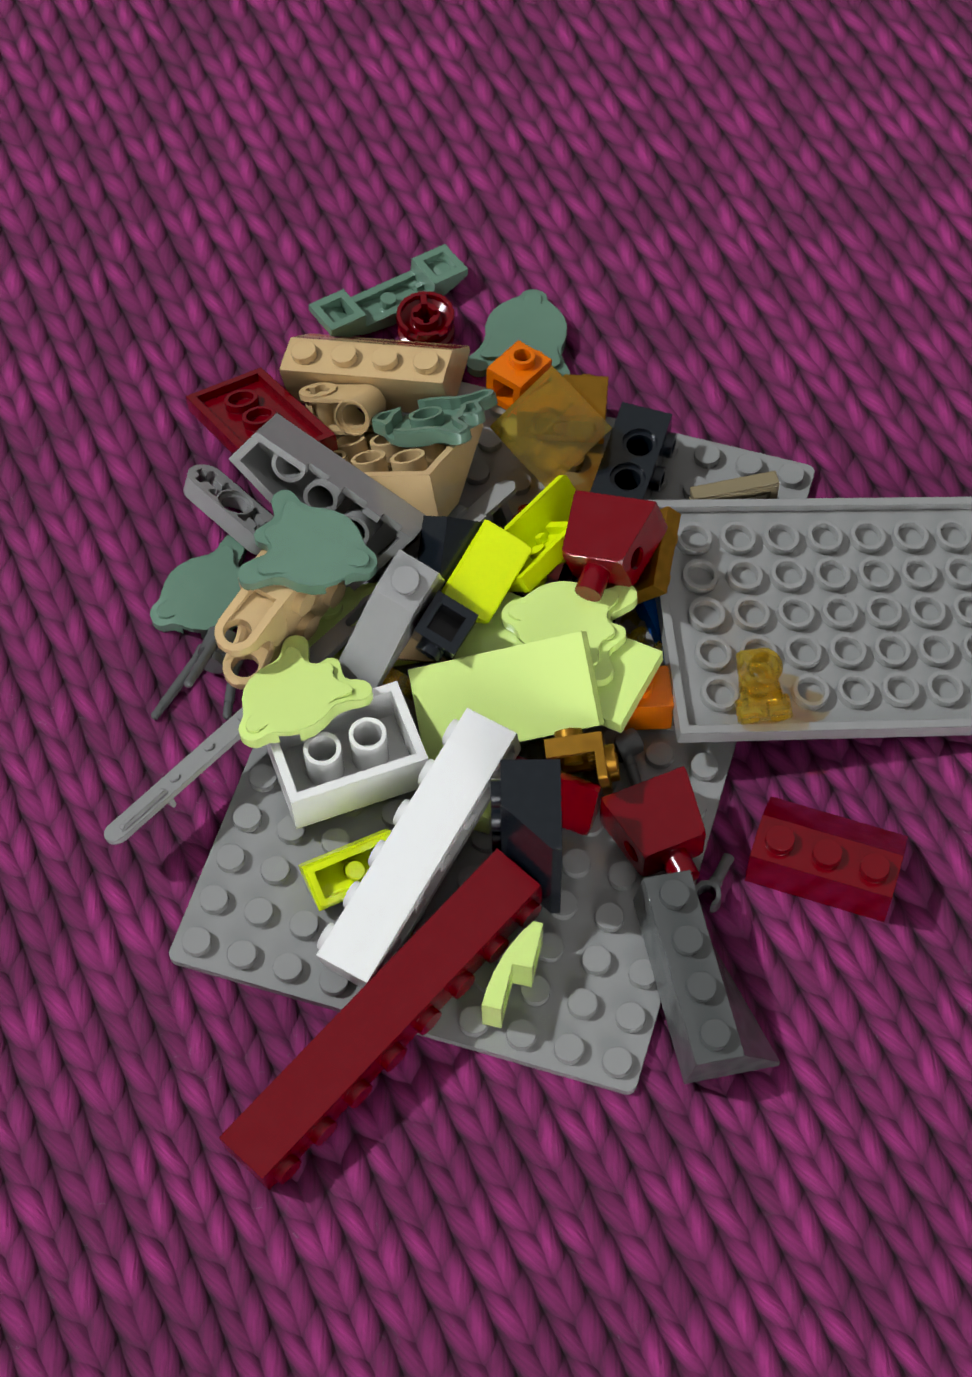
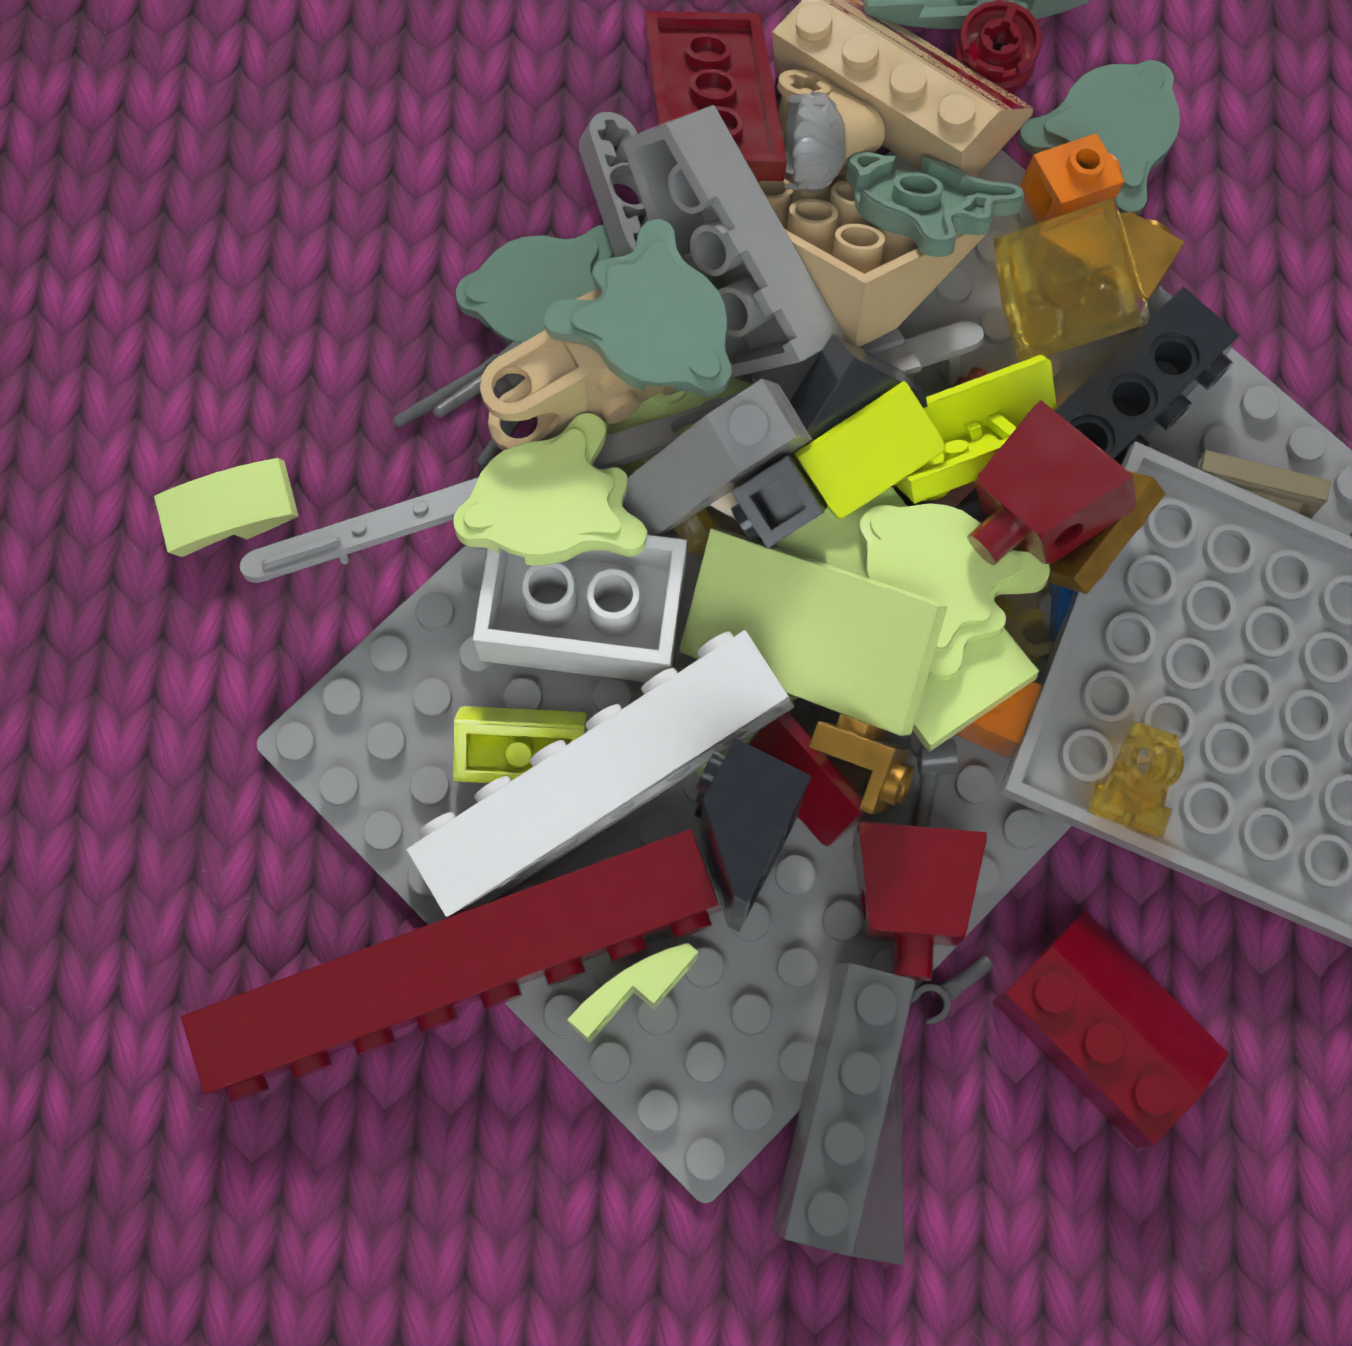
camera: 25 degrees right, 15 degrees up
(66, 815) = (225, 504): none -> yellowish green slope
(345, 415) = (813, 141): none -> light grey hair

